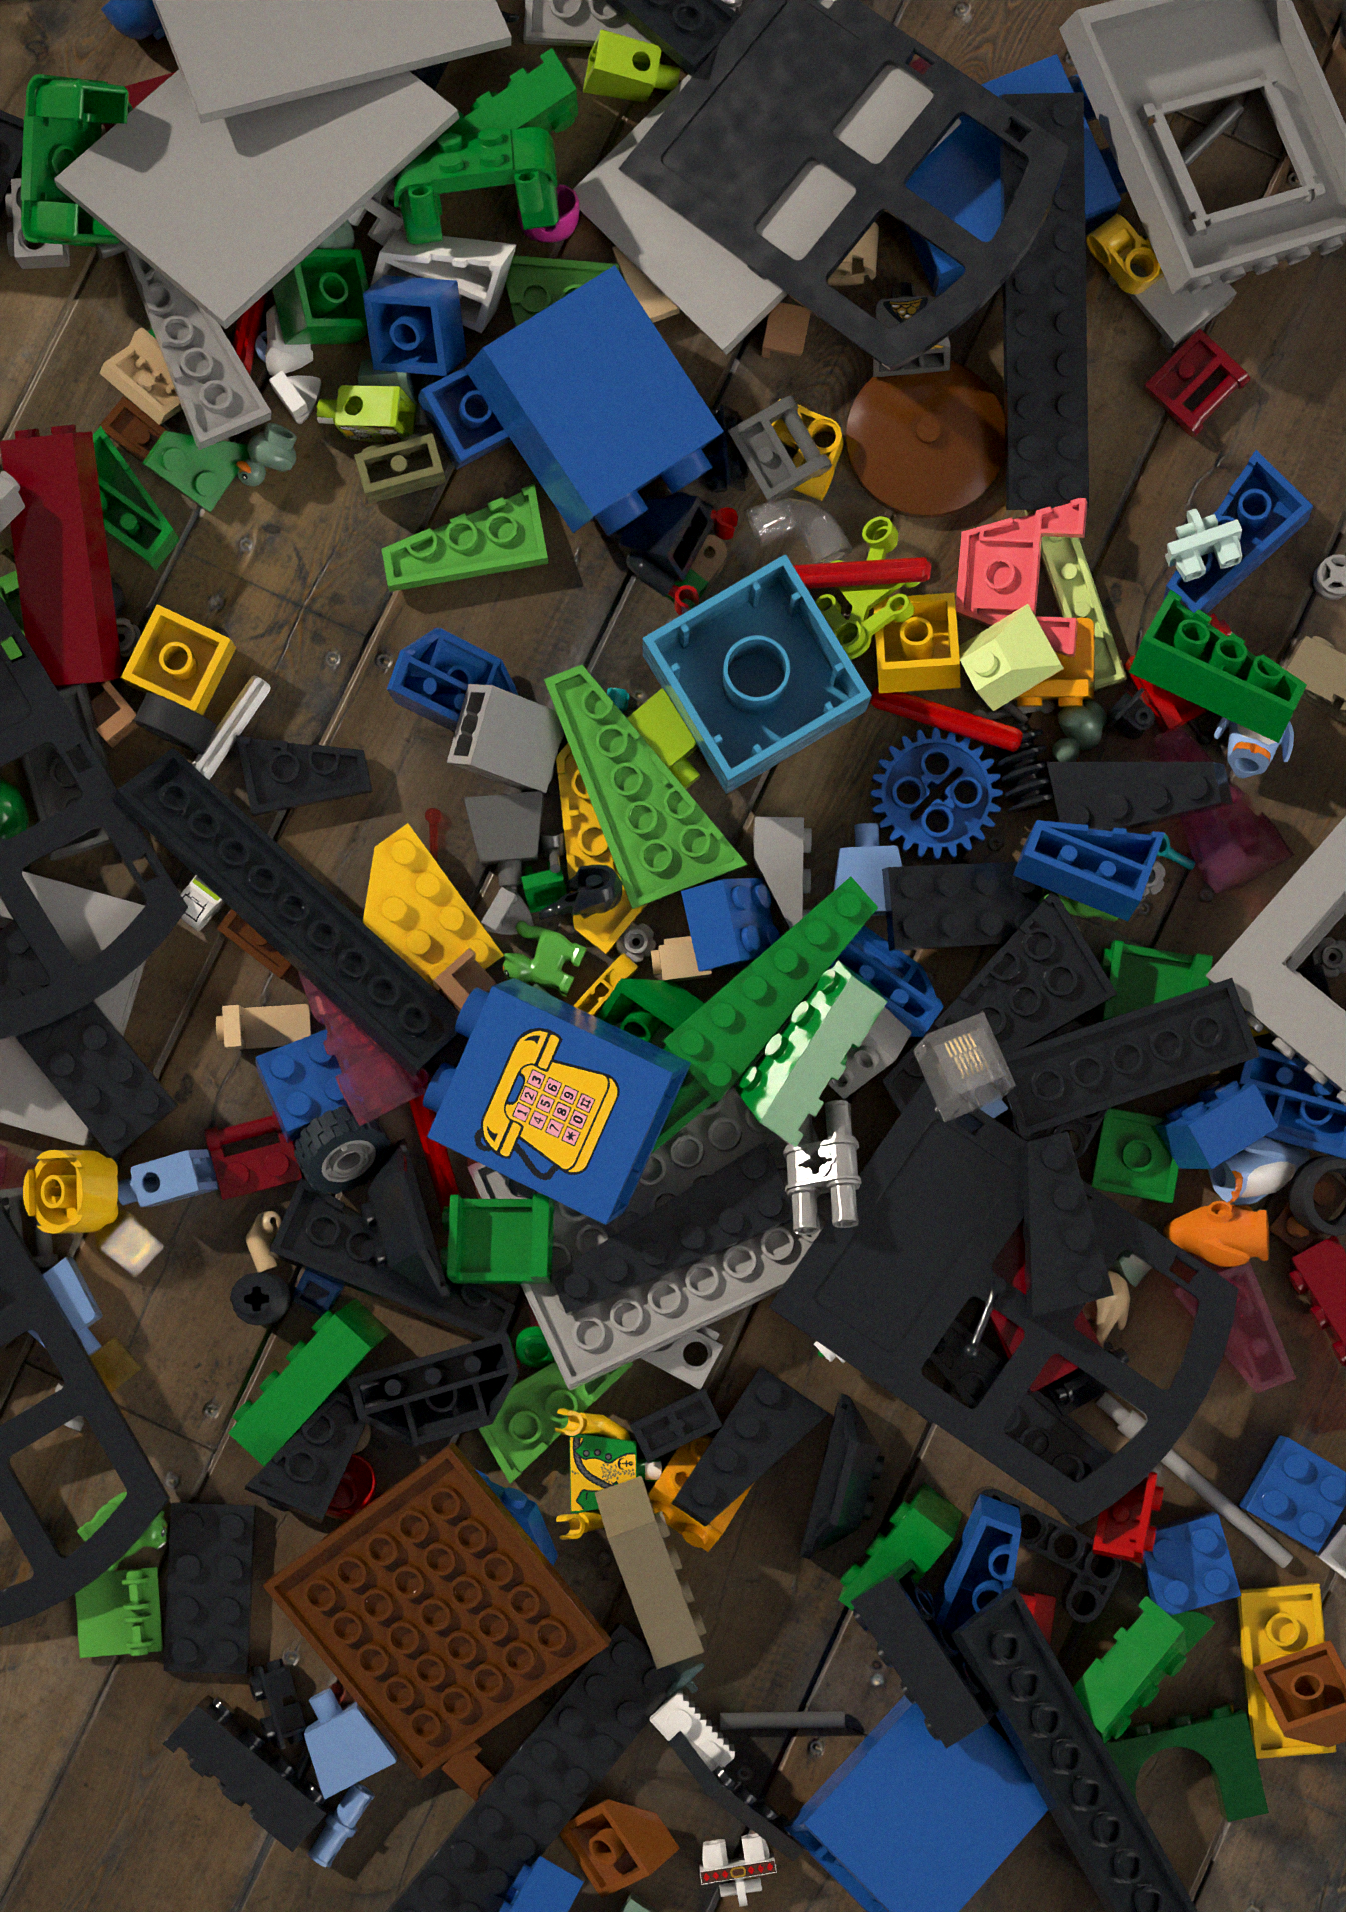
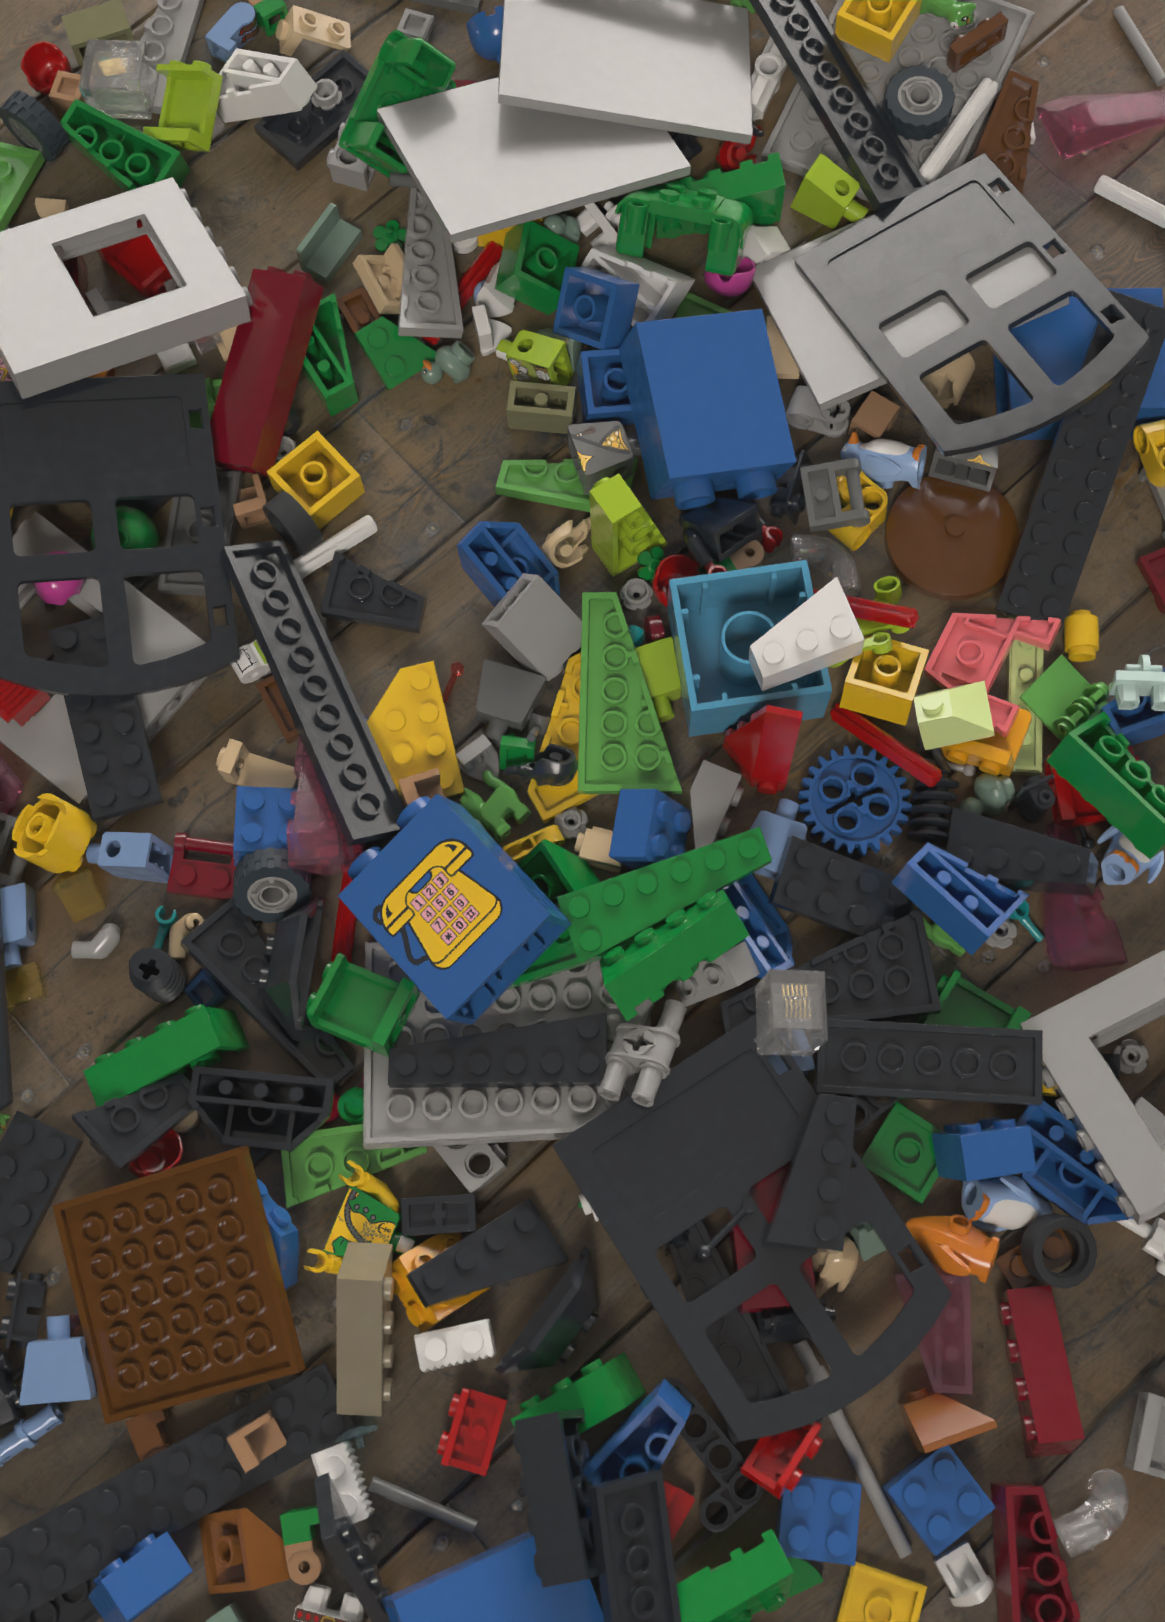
camera: 30 degrees right, 10 degrees down
(33, 27) = (416, 24): none -> light grey tile
(58, 358) = (327, 245): none -> sand green panel
(124, 316) = (389, 236): none -> green plant
(177, 1289) = (100, 946): none -> light grey arm
(237, 1245) = (164, 925): none -> teal hand
(493, 626) = (562, 544): none -> tan piece
(494, 500) = (601, 451): none -> dark grey torso
(497, 62) = (732, 153): none -> red piece
(557, 583) = (620, 525): none -> lime wedge
(576, 157) = (764, 244): none -> white tile
(588, 1729) = (256, 1440): none -> medium nougat panel
(599, 638) = (636, 586): none -> light grey plate
(605, 606) = (650, 562): none -> green plant
(637, 615) = (669, 568): none -> red hair
(637, 685) = (653, 628): none -> dark red tile
(684, 1822) = (301, 1548): none -> leg
(703, 355) = (805, 414): none -> light grey piece
(748, 1549) = (455, 1345): none -> white brick
(803, 1626) = (473, 1430): none -> red bracket
(819, 379) = (887, 460): none -> light blue animal
(819, 782) = (765, 747): none -> red wedge
(825, 652) = (807, 639): none -> white wedge
(1113, 502) = (1081, 636): none -> yellow brick
(1121, 585) = (1064, 698): none -> bright green hinge
(1273, 1418) = (940, 1421): none -> dark orange slope

